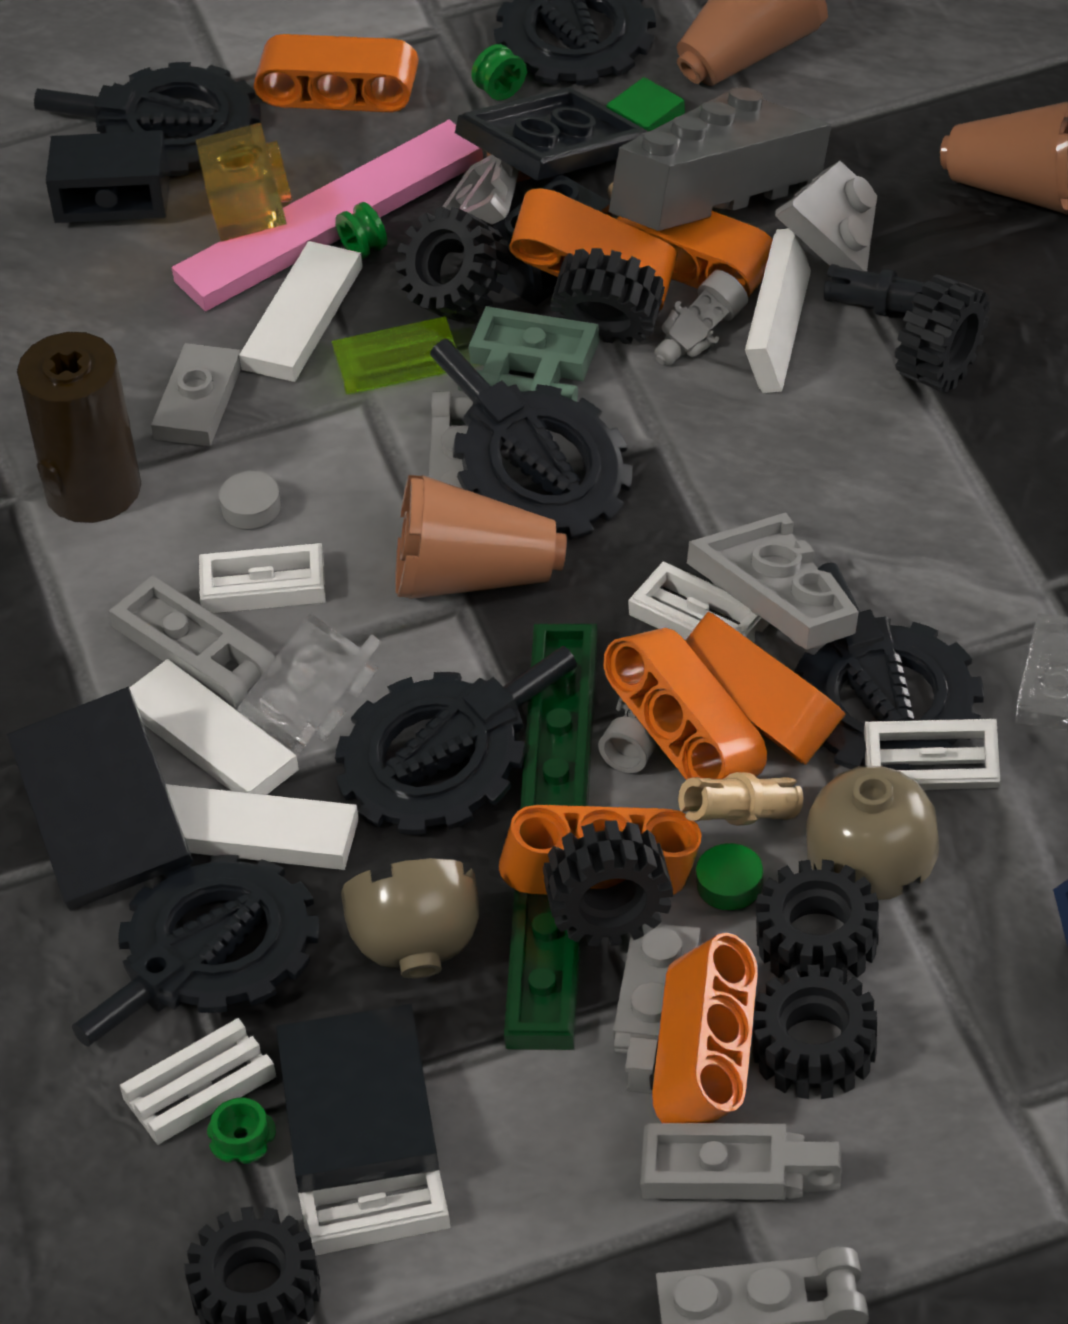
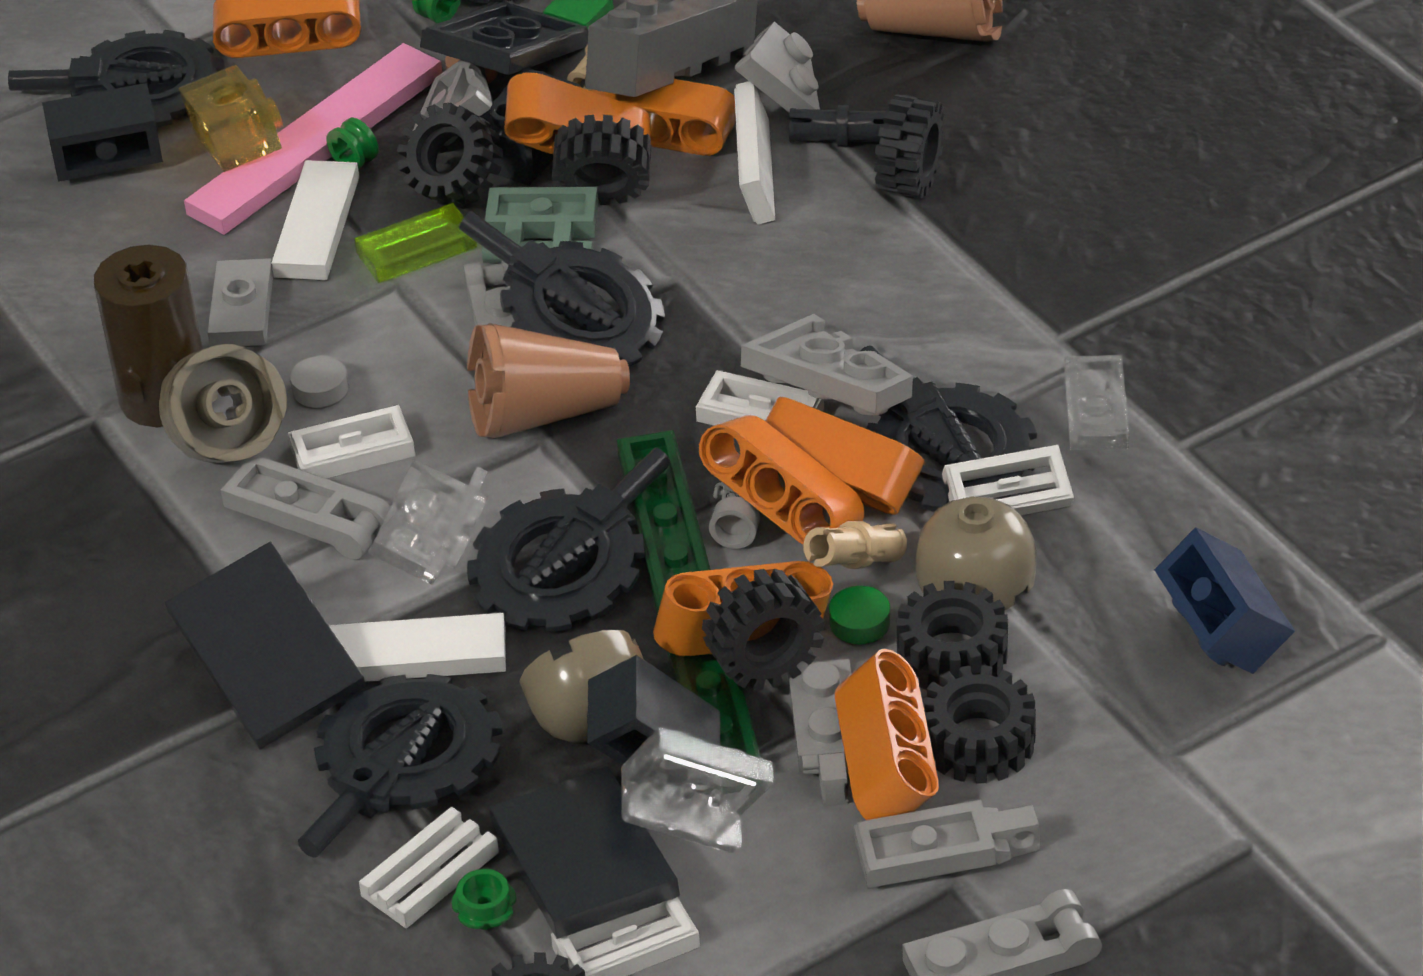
camera: 15 degrees left, 5 degrees down
(109, 544) = (251, 421): none -> dark tan brick
(211, 731) = (352, 578): white tile -> none
(460, 974) = (636, 700): none -> black brick
(480, 1054) = (692, 788): none -> clear bracket
(690, 329) = (678, 180): light grey piece -> none

